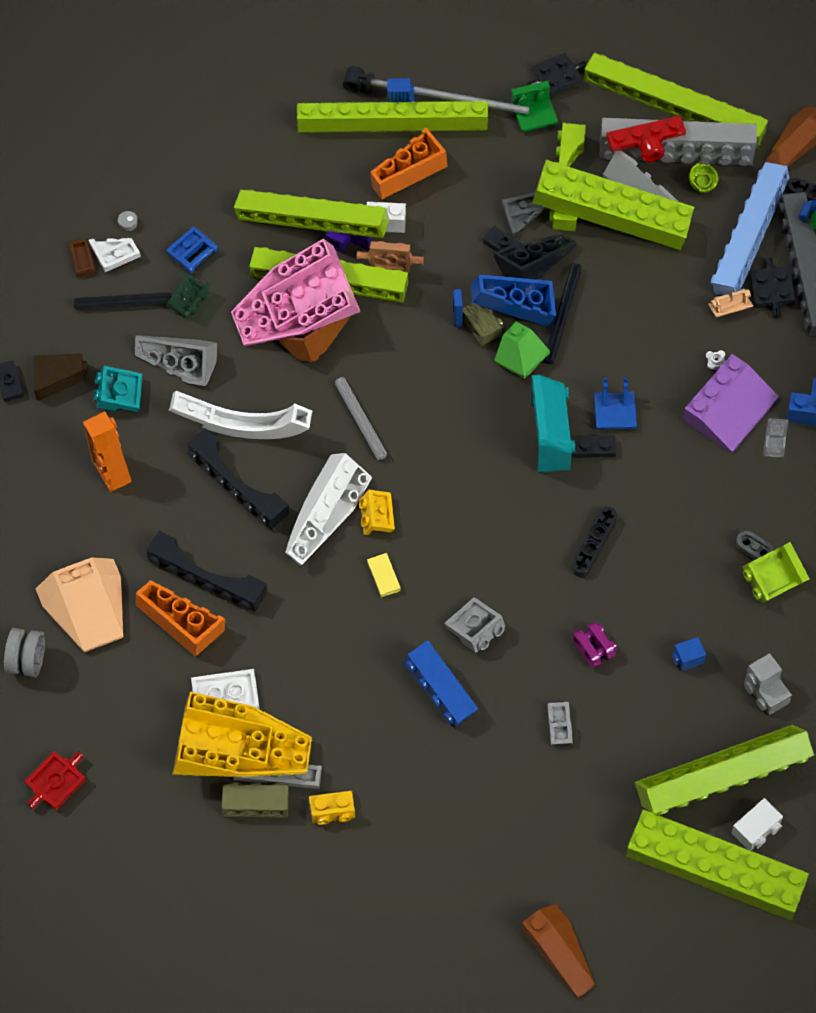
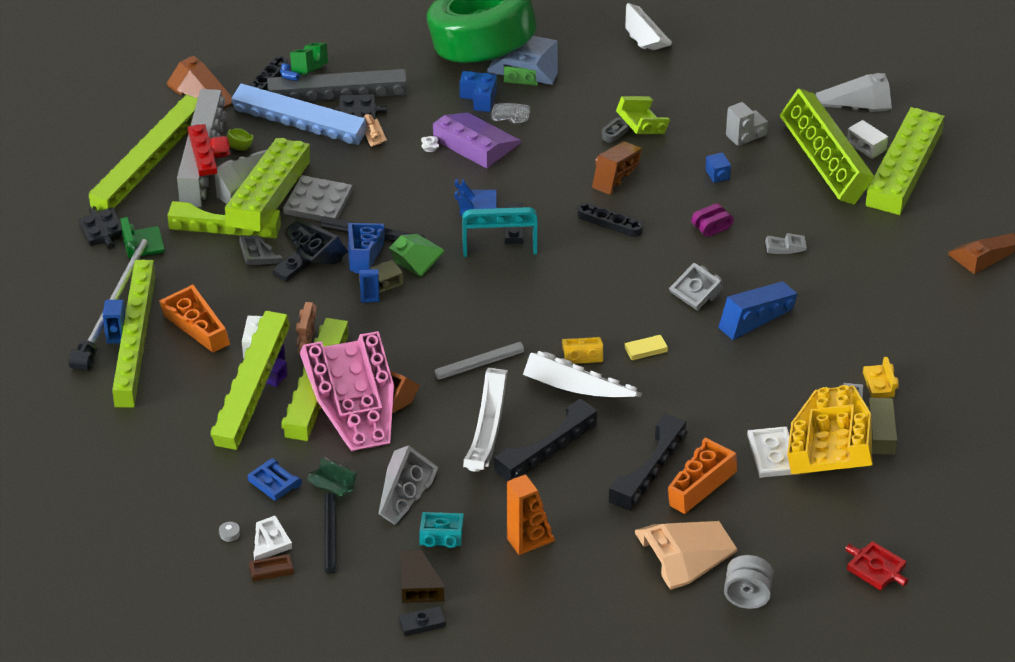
camera: 90 degrees left, 20 degrees down
(614, 260) = (317, 198): none -> light grey plate
(684, 544) = (615, 164): none -> dark orange wedge

